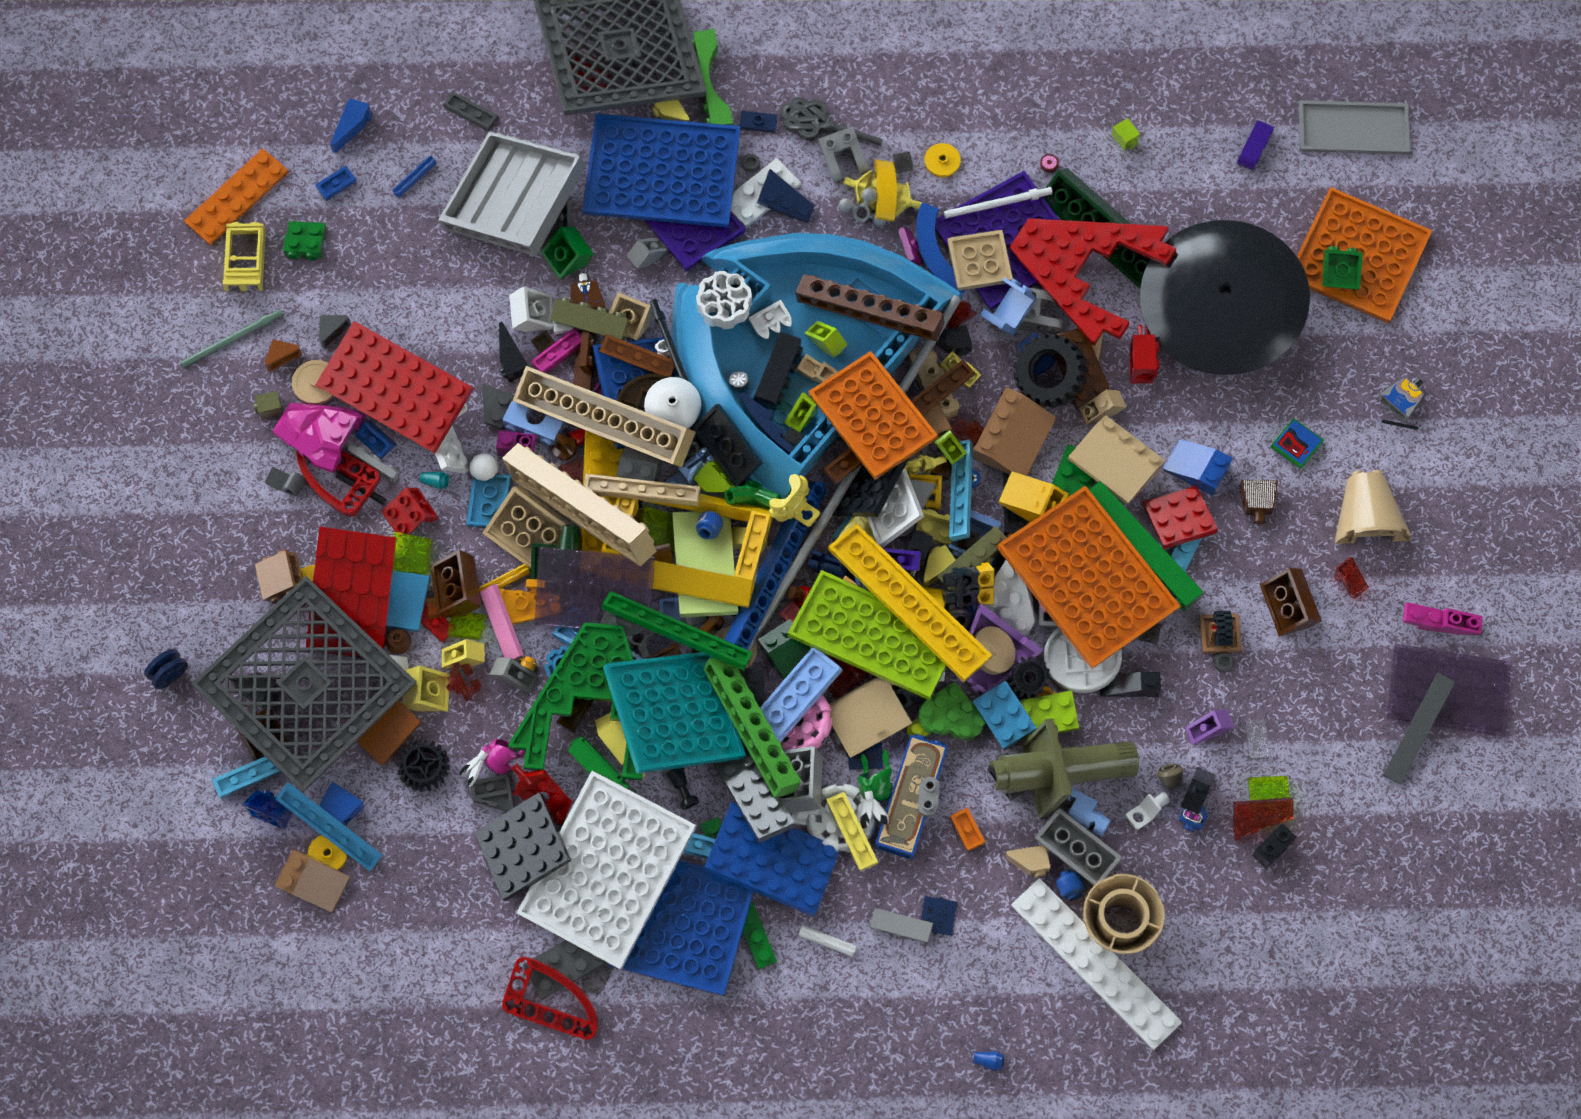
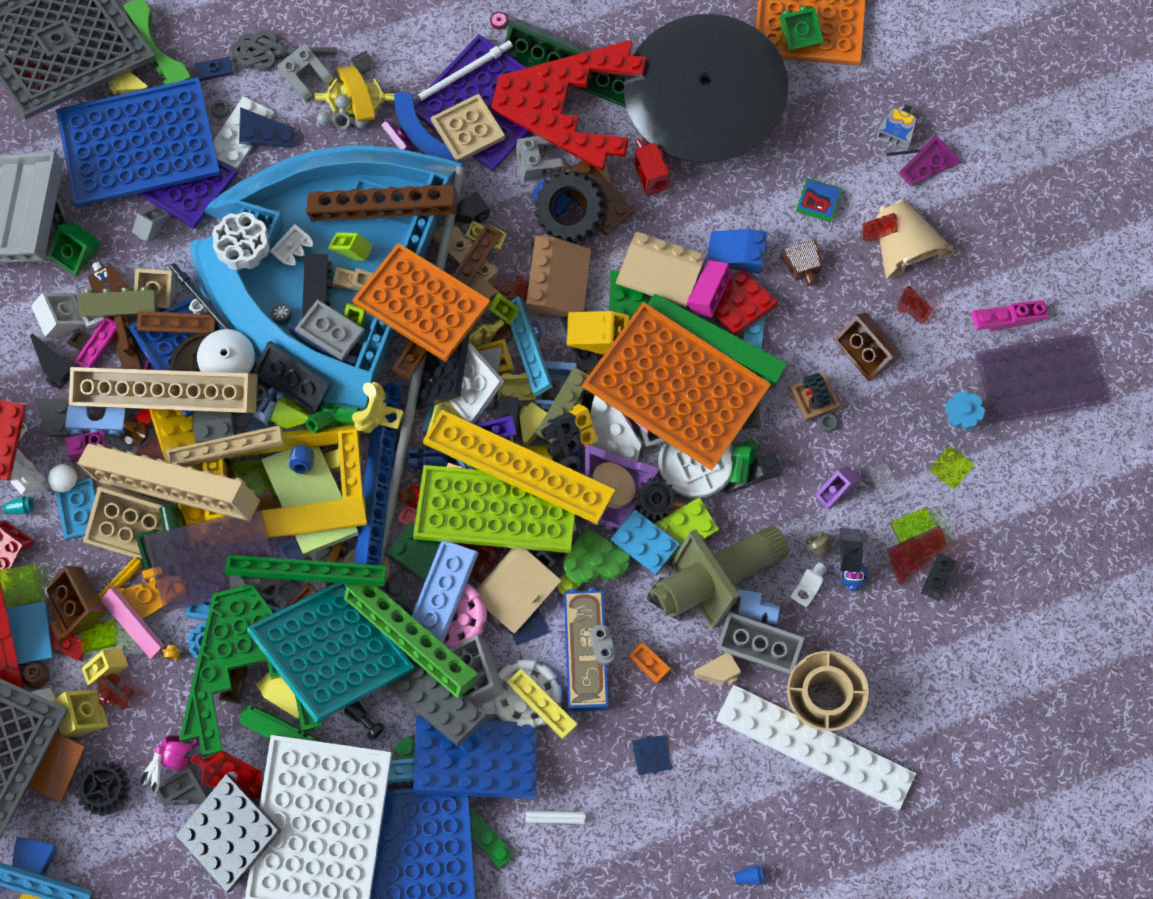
camera: 20 degrees left, 0 degrees up
(513, 674) = (160, 667): light grey slope -> none
(777, 412) = (330, 330): none -> light grey tile
(875, 790) = (548, 657): green hair -> none
(901, 925) = (620, 777): light grey tile -> none
(942, 168) = (399, 56): yellow plate -> none
(961, 315) = (469, 183): clear red hips -> none
(1012, 308) = (514, 161): medium blue panel -> none
(1070, 885) = (765, 681): blue head -> none
(1106, 403) = (632, 221): tan slope -> none
(1126, 667) = (741, 459): none -> green piece
(1156, 494) = (709, 288): none -> dark pink brick
(1328, 746) = (951, 467): none -> clear neon green piece
(1346, 490) = (879, 227): none -> clear red plate
(1360, 696) = (964, 410): none -> dark azure plant
(1418, 728) = (1027, 422): dark grey tile -> none
(1421, 441) = (928, 161): none -> magenta wing

